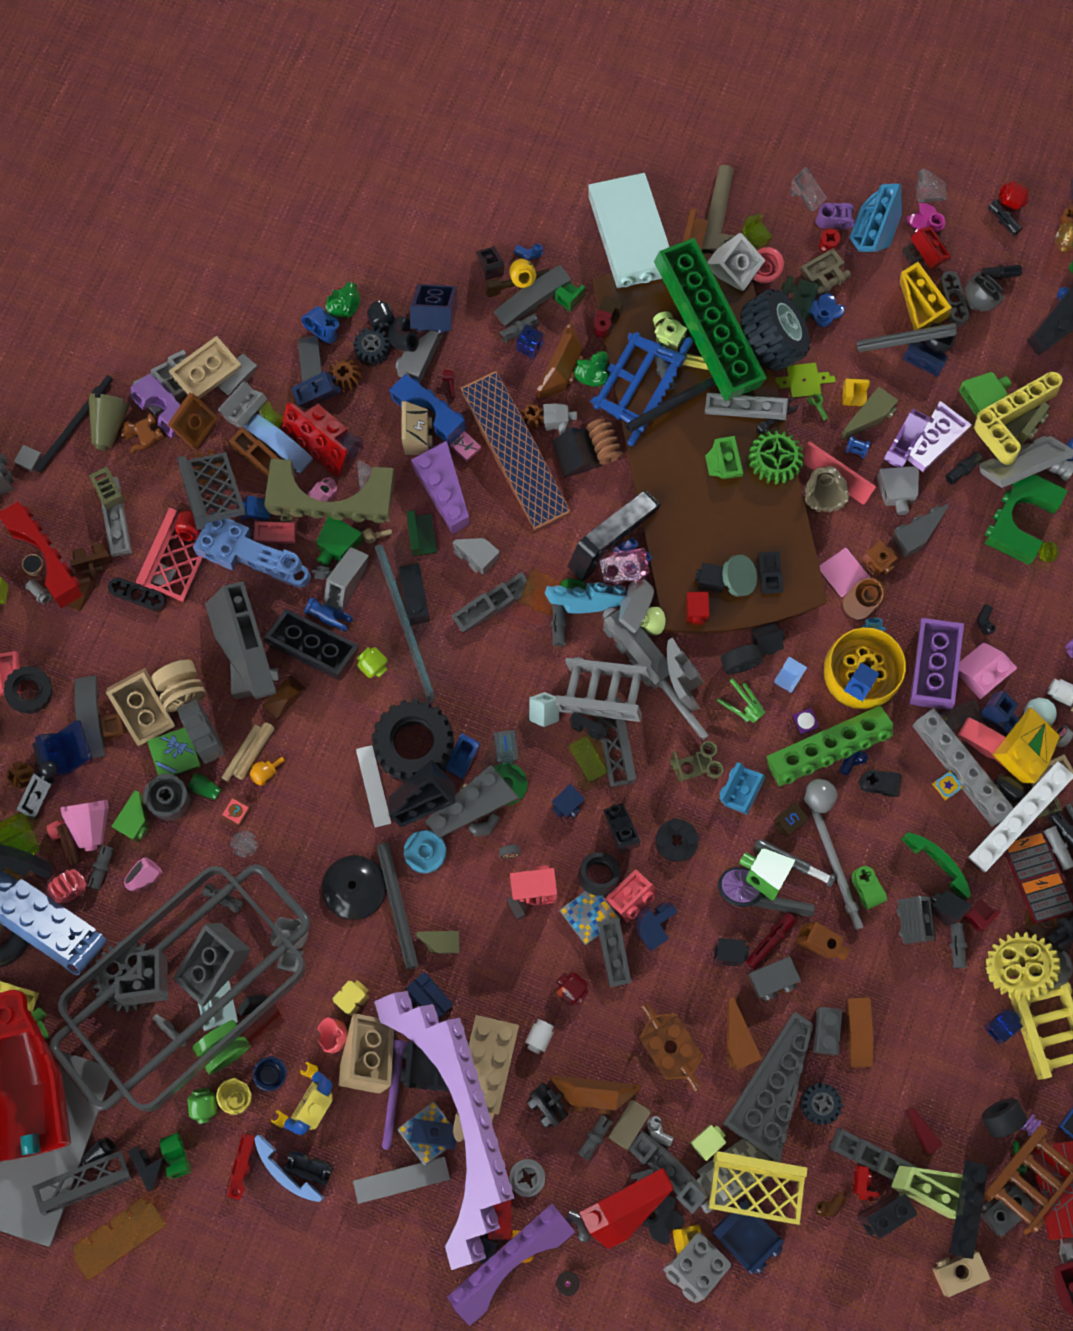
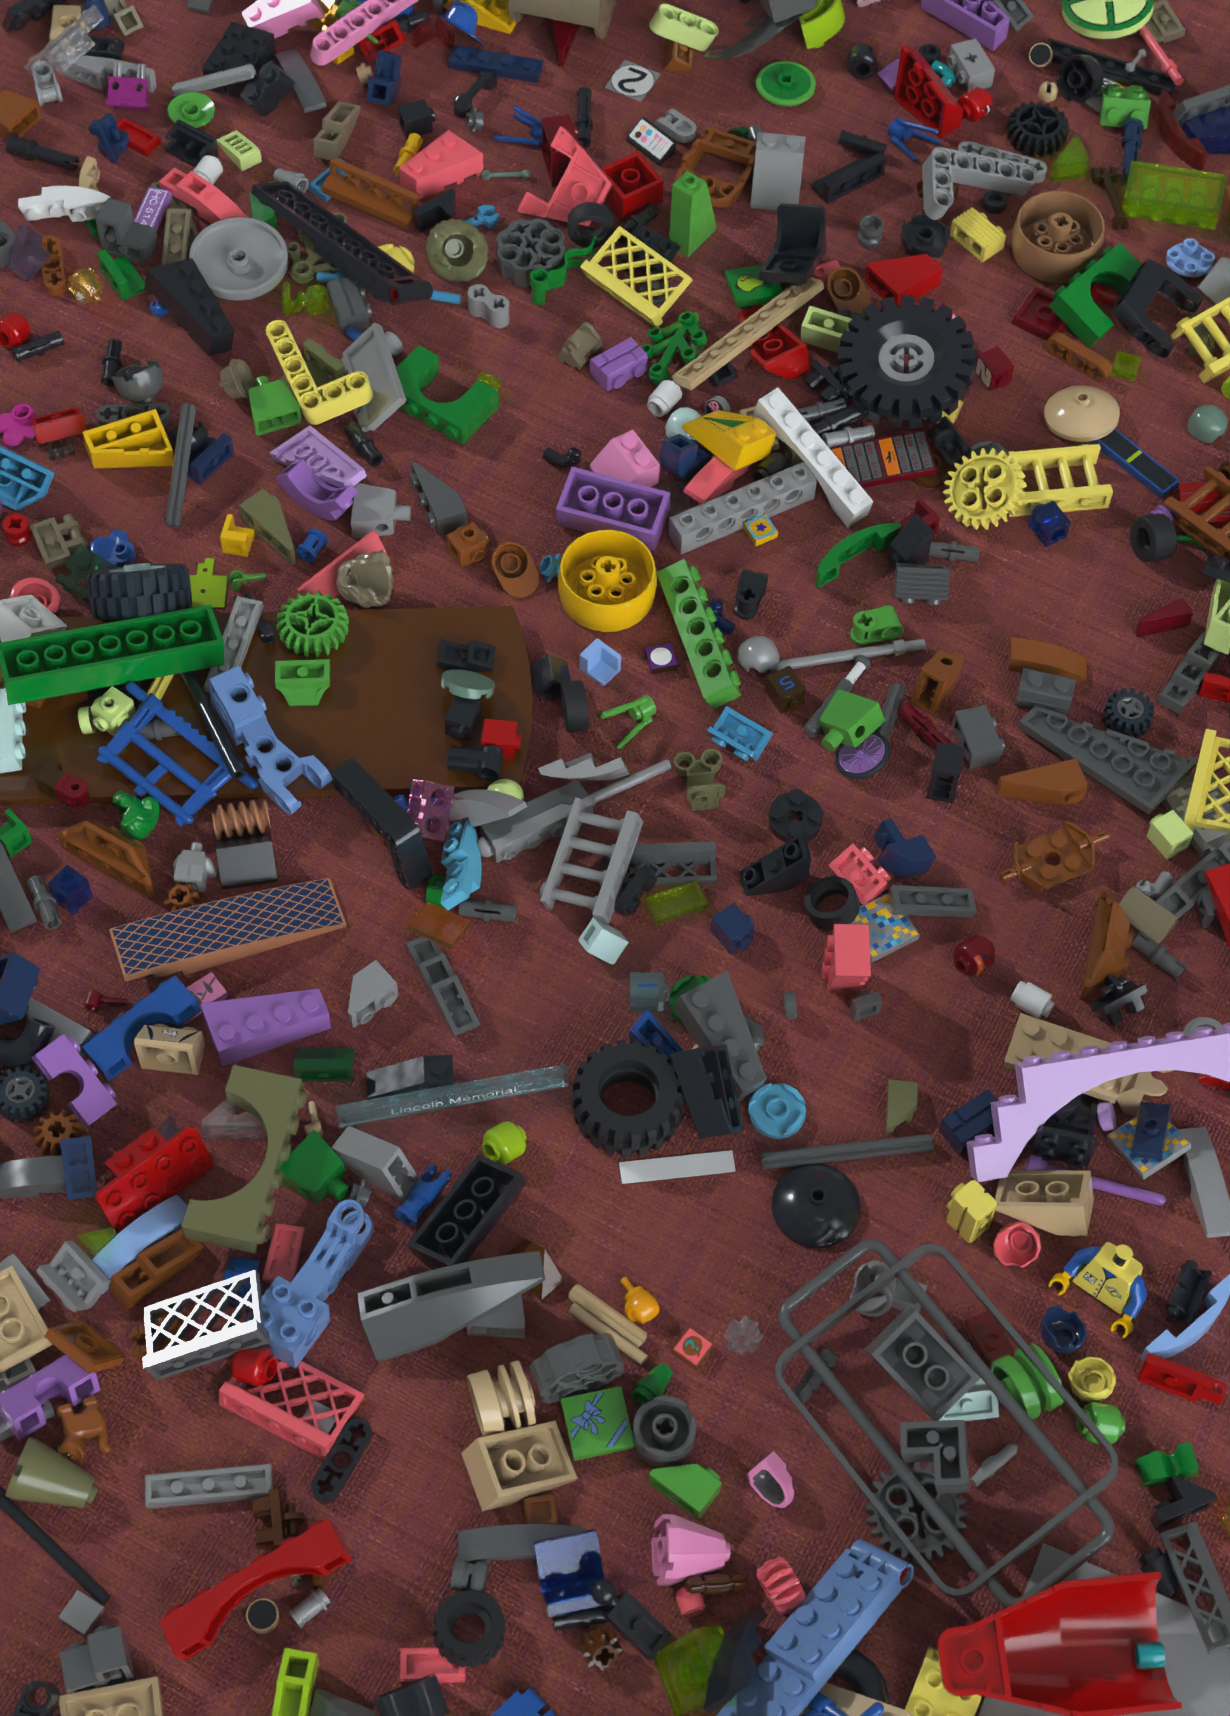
camera: 85 degrees left, 15 degrees down
(63, 685) = (462, 1572): none -> dark grey wheel
(100, 867) = (753, 1541): dark grey pin -> none
(112, 500) = (177, 1492): olive slope -> none
(324, 490) = (231, 1178): bright pink rock -> none
(390, 362) = (93, 1097): none -> medium lavender arch
(445, 1100) = (1106, 1116): none -> lavender tile
(675, 593) = (483, 762): none -> black piece
(676, 424) = (247, 724): none -> medium blue brick
(843, 571) = (473, 589): bright pink sticker -> none
(861, 682) = (632, 573): blue brick -> none
(1002, 363) = (237, 379): none -> dark tan piece

